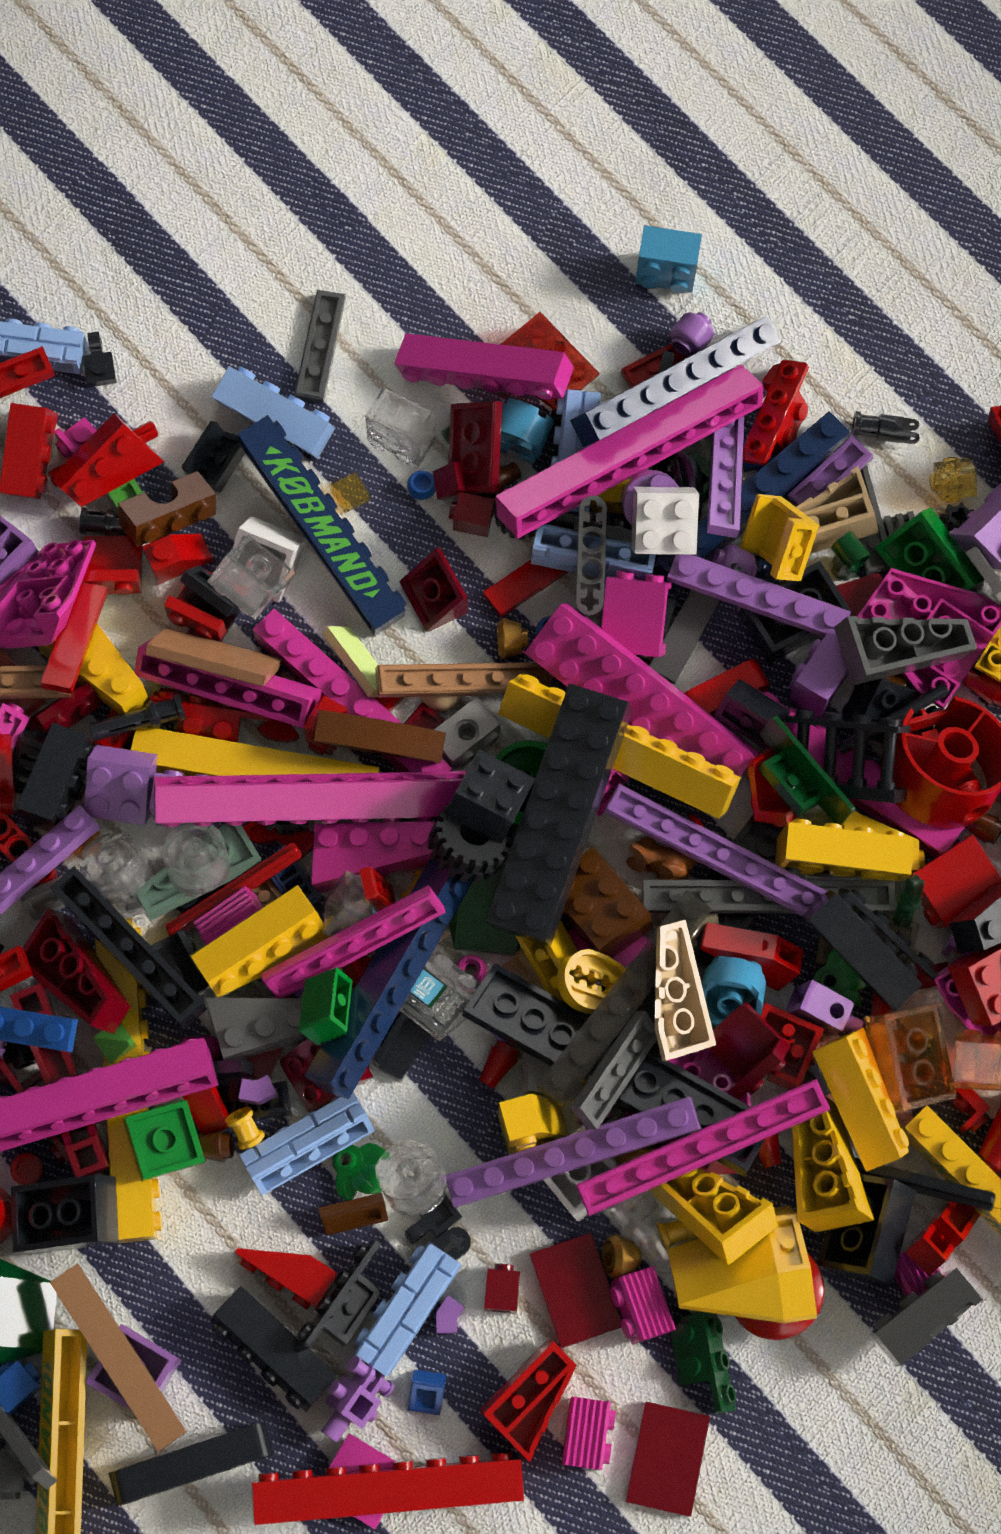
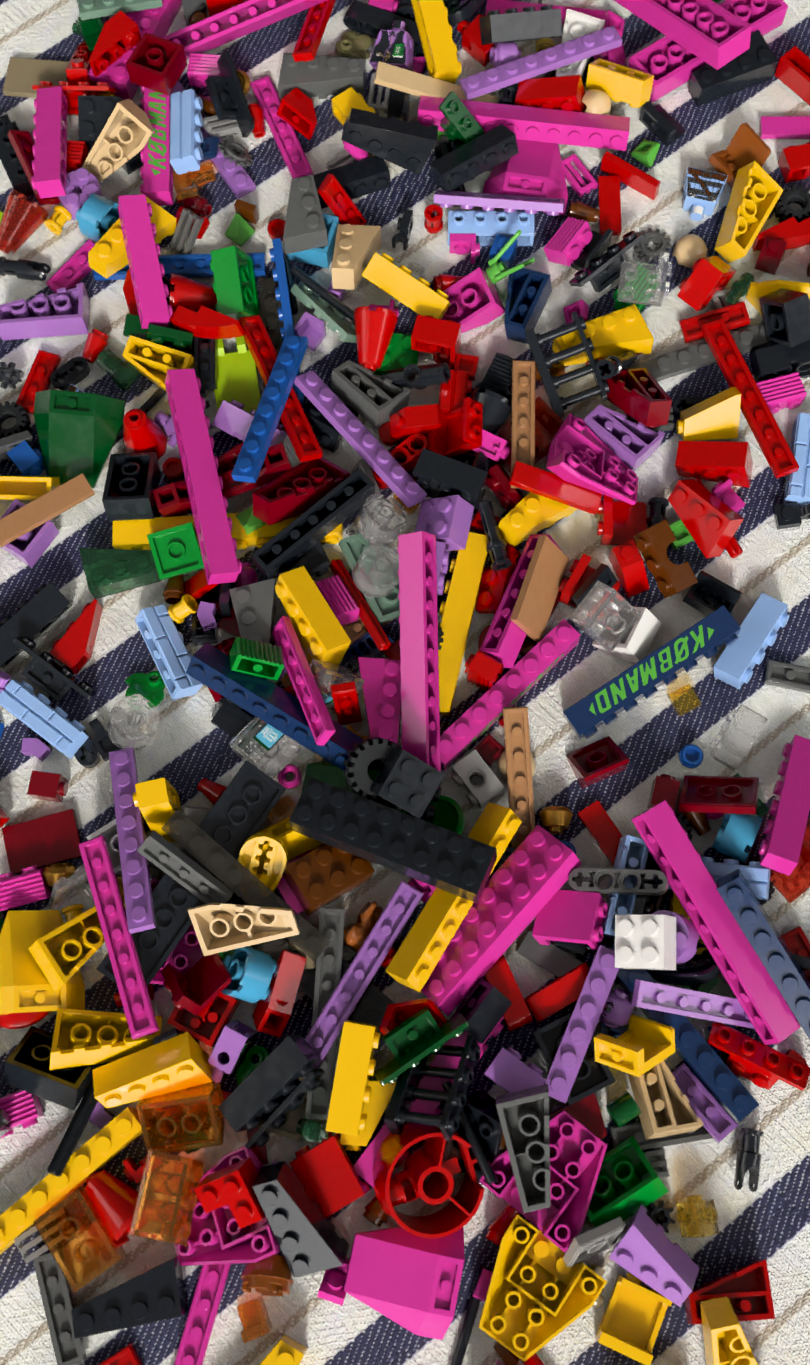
camera: 100 degrees right, 0 degrees up
(187, 1228) = (117, 570): none -> clear green wedge
(353, 1214) = (114, 681): reddish brown tile -> none
(354, 656) = (542, 696): yellowish green tile -> none
(378, 736) = (466, 705): reddish brown slope -> none
(449, 481) = (692, 775): dark red tile -> none
(721, 629) = (557, 993): none -> red beam
(917, 1163) = (101, 1116): none -> medium lavender piece
(942, 1236) = (35, 1126): red slope -> none

